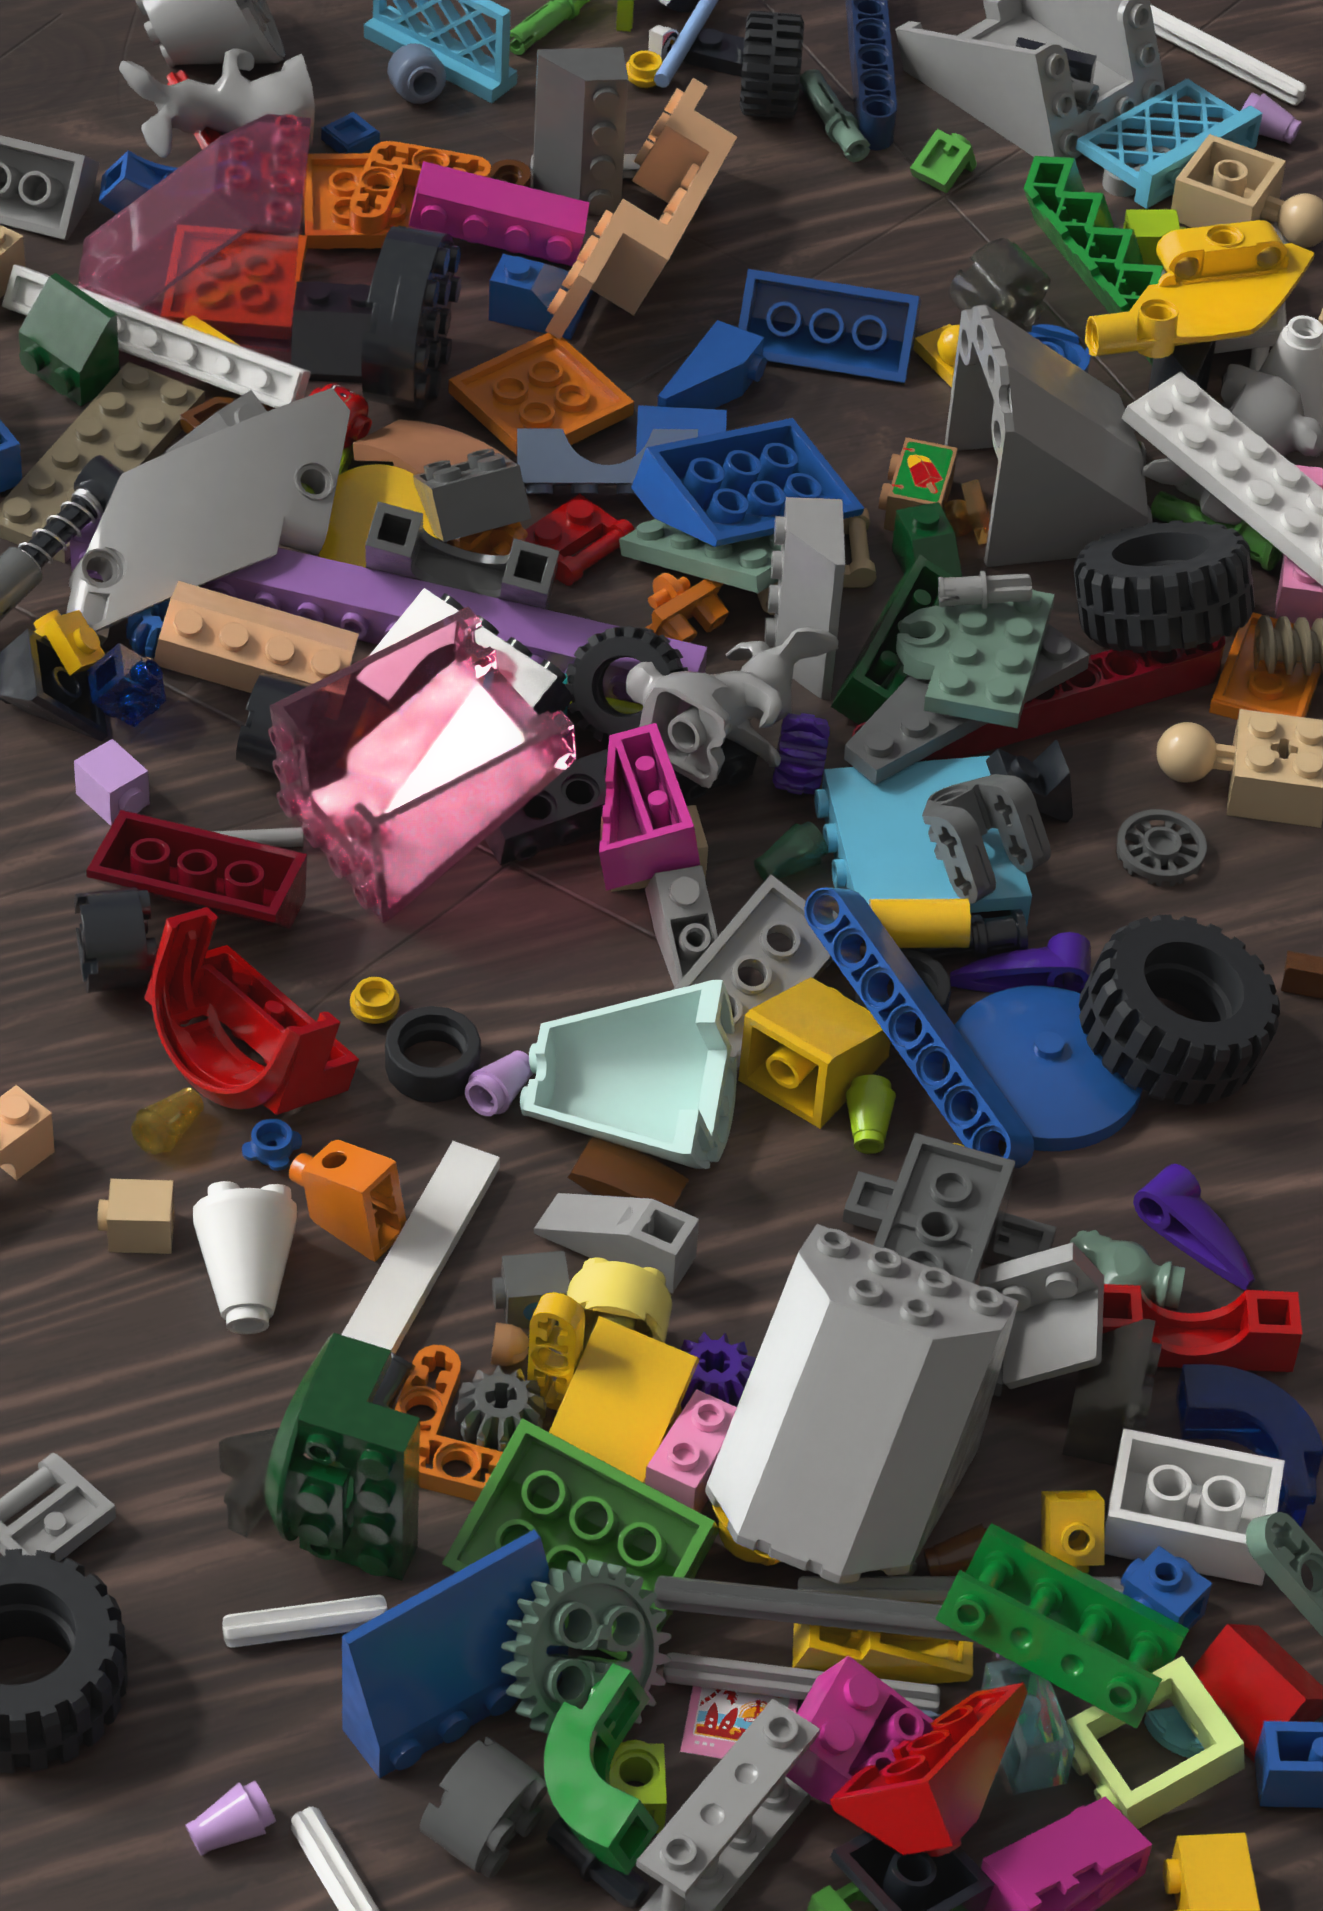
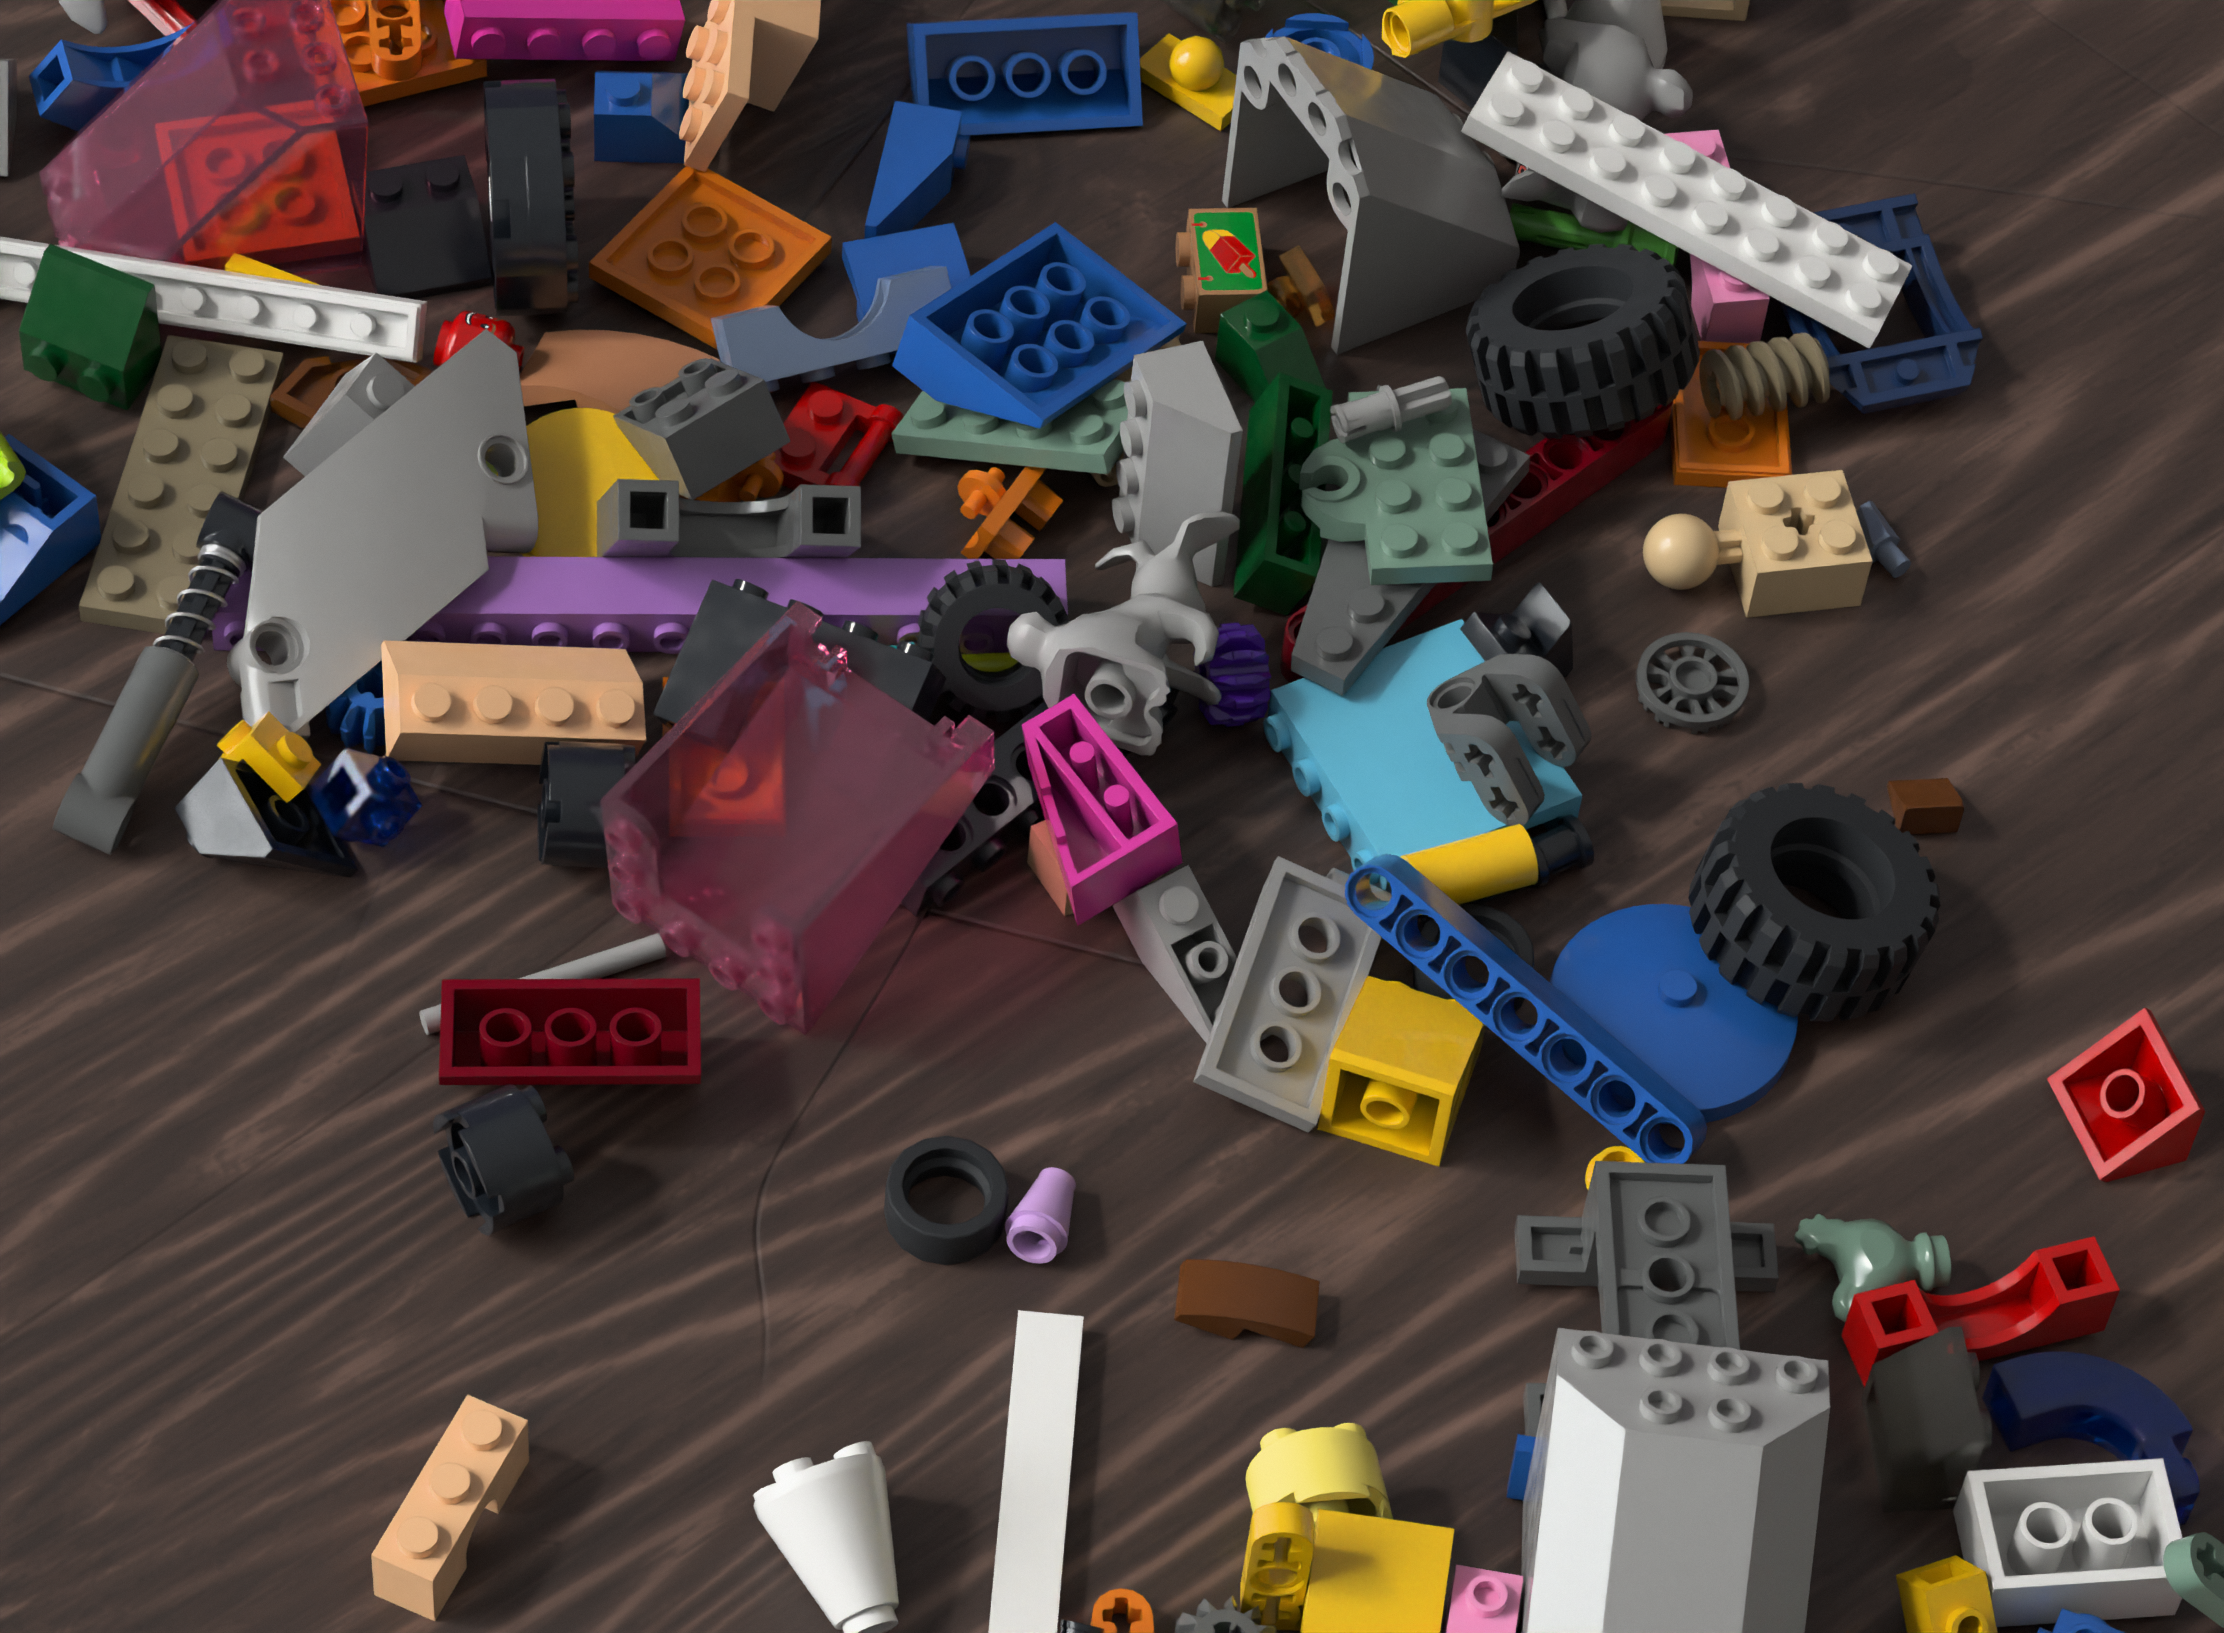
camera: 20 degrees left, 5 degrees up
(111, 781) = (398, 936): lavender brick -> none
(138, 1216) = (680, 1523): tan brick -> none
(166, 1121) = (658, 1383): clear yellow cone -> none
(190, 982) = (648, 1181): red piece -> none
(272, 1144) = (799, 1361): blue plate -> none
(353, 1196) = (933, 1422): orange torso -> none
(374, 1000) = (844, 1147): yellow plate -> none
(509, 1345) = (1193, 1564): medium nougat hinge -> none
(524, 1282) = (1198, 1483): dark grey brick -> none
(624, 1231) = (1272, 1377): light grey slope -> none
(642, 1074) = (1214, 1164): light aqua cone -> none
(721, 1368) = (1478, 1525): dark purple gear -> none
(793, 852) = (1270, 806): clear green cone -> none
(870, 1111) = (1497, 1131): lime cone -> none
(1056, 1314) = (1840, 1320): light grey bracket -> none
(1061, 964) = (1636, 875): dark purple piece -> none
(1179, 1214) = (1908, 1168): dark purple piece -> none

